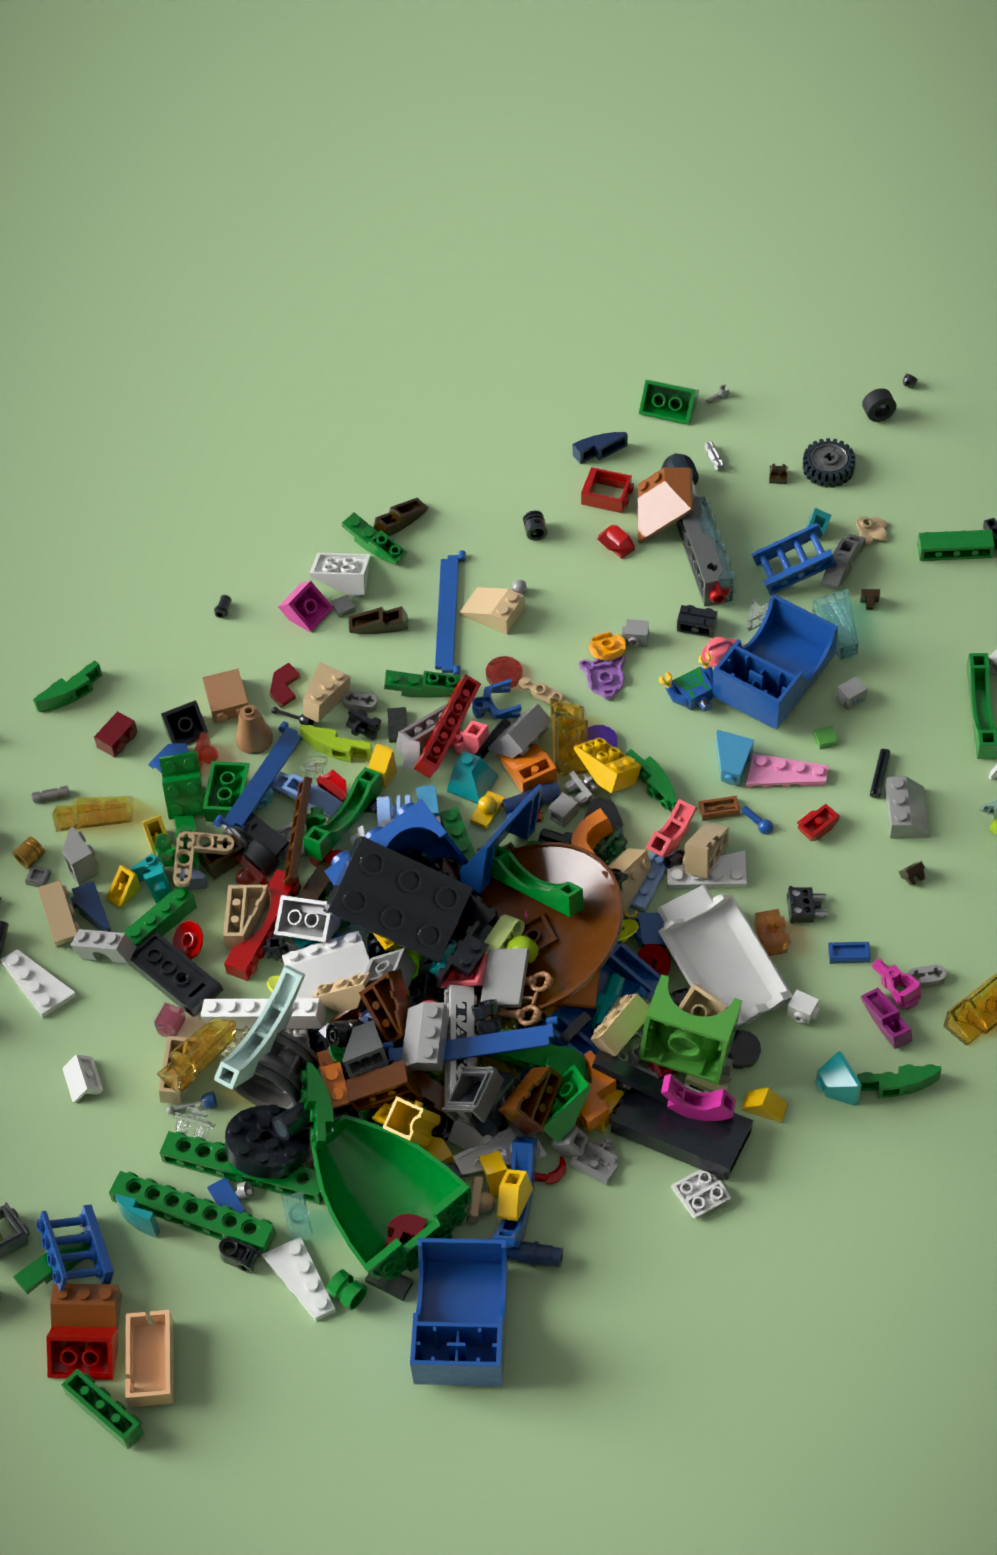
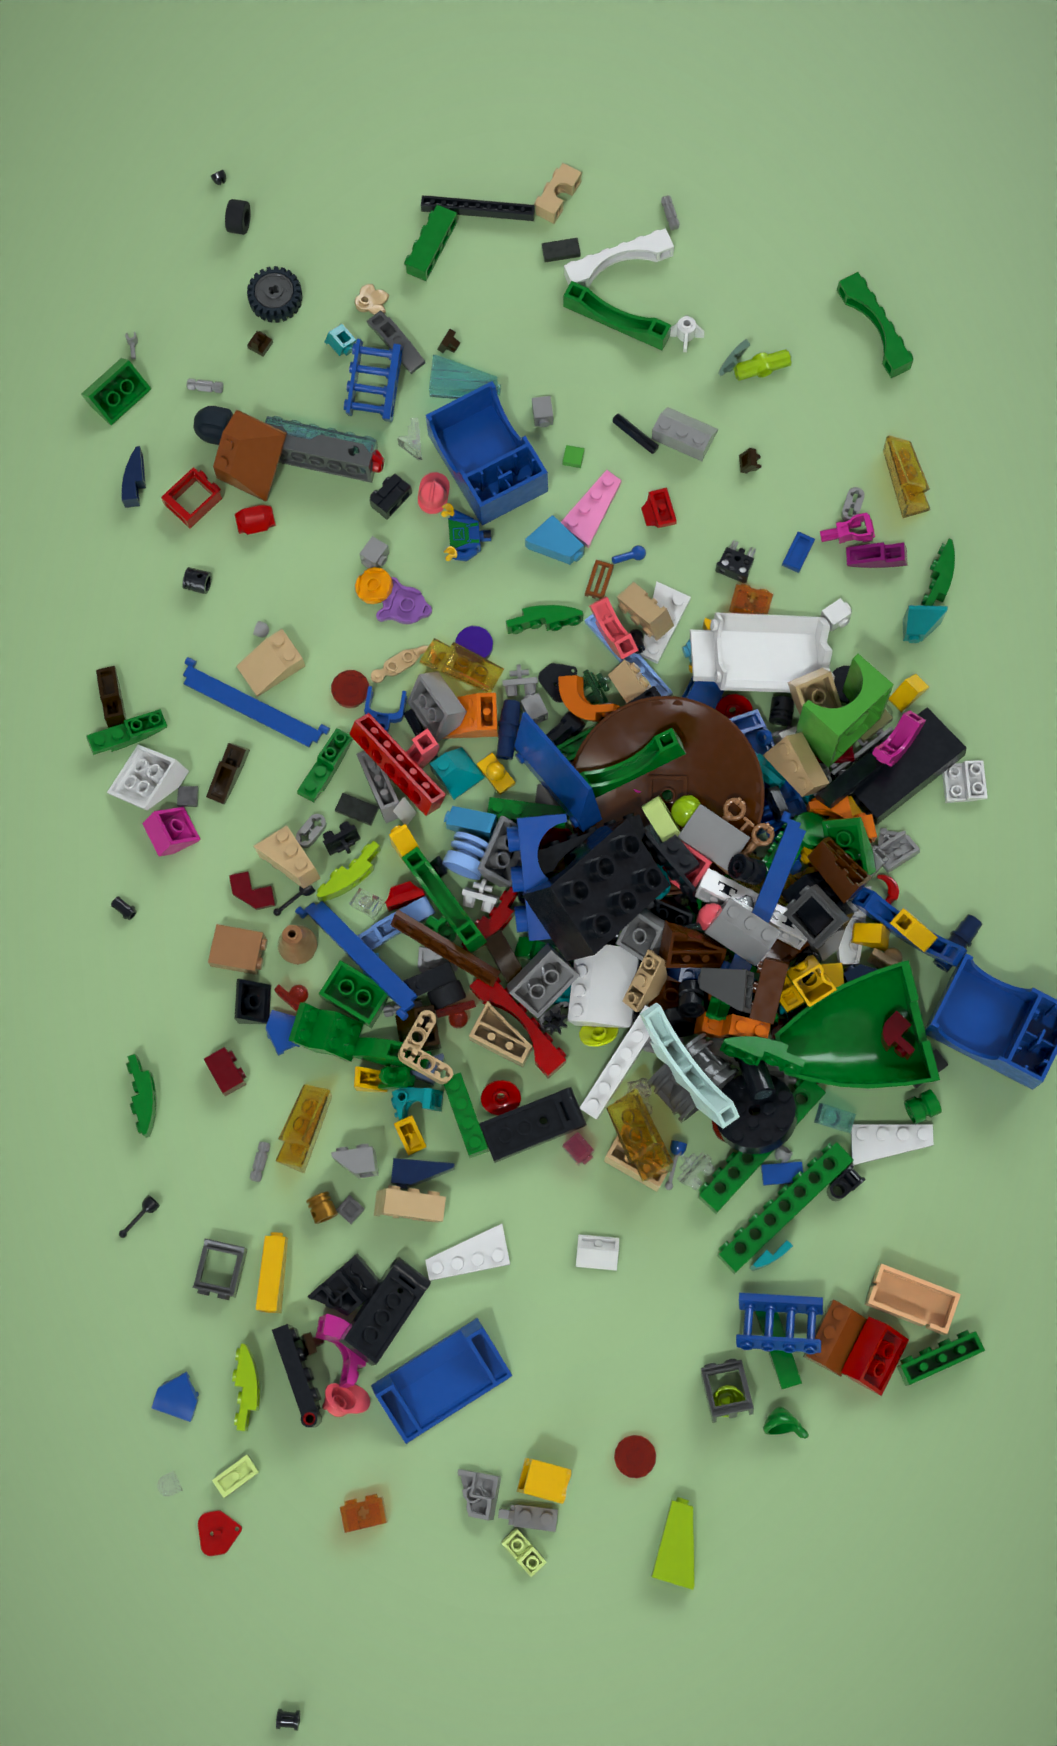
camera: 65 degrees left, 20 degrees up
(115, 945) = (466, 1183): light grey arch -> none
(608, 765) = (511, 648): yellow slope -> none

